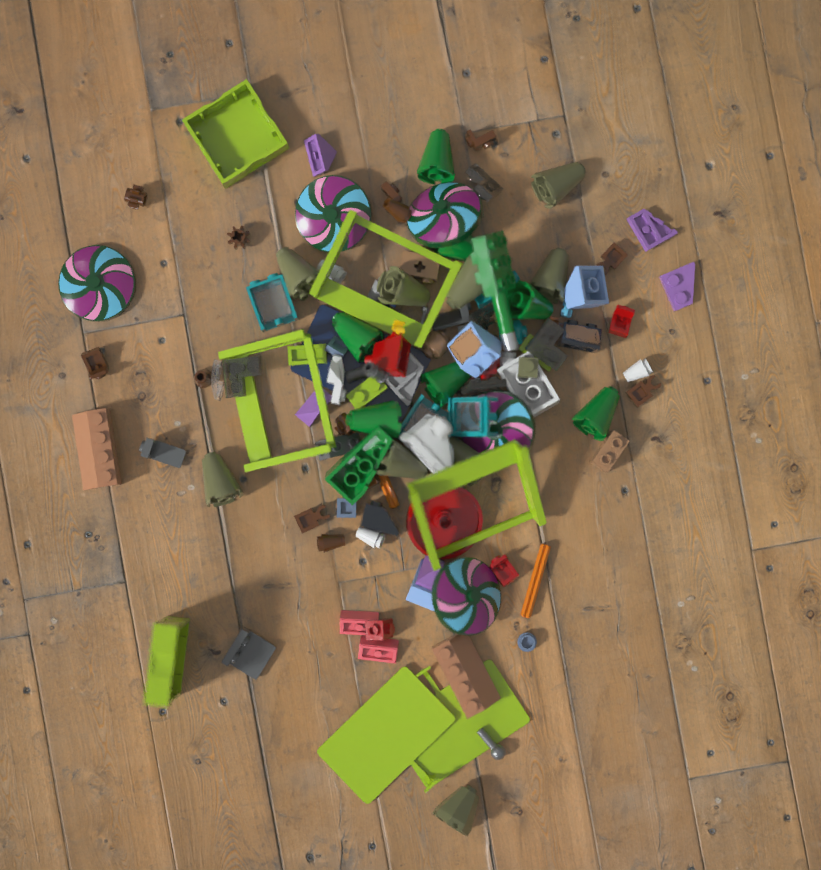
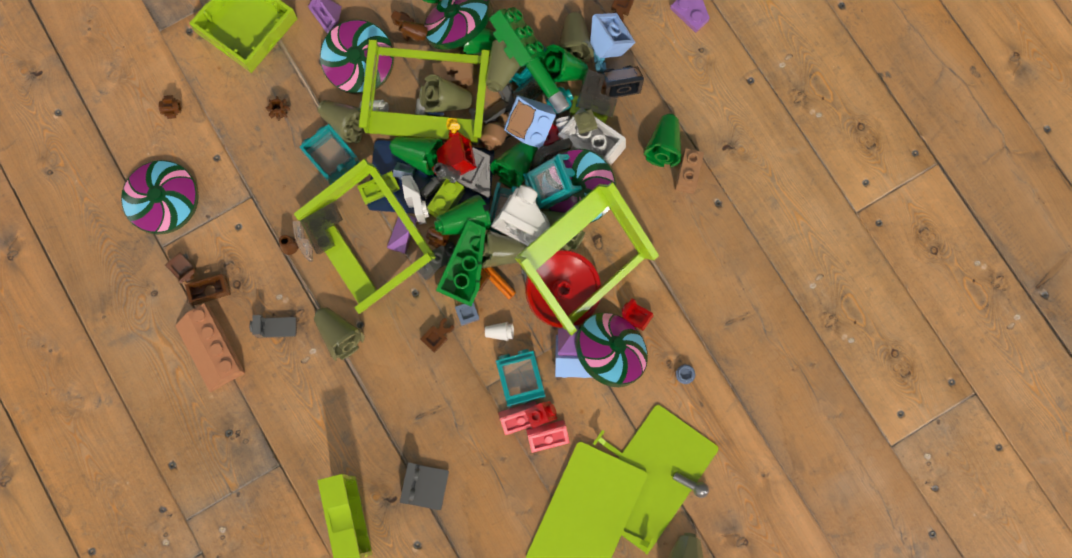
camera: 20 degrees left, 10 degrees down
(102, 389) = (196, 289): none -> reddish brown piece
(328, 542) = (463, 350): reddish brown cone -> none
(372, 588) = (520, 377): none -> window
(378, 519) = (501, 309): black slope -> none
(466, 674) = (640, 425): nougat slope -> none
(535, 580) = (670, 314): orange axle -> none
(621, 321) = (652, 54): red bracket -> none
(638, 370) = (686, 91): white cone -> none
(641, 392) = (696, 110): reddish brown plate -> none

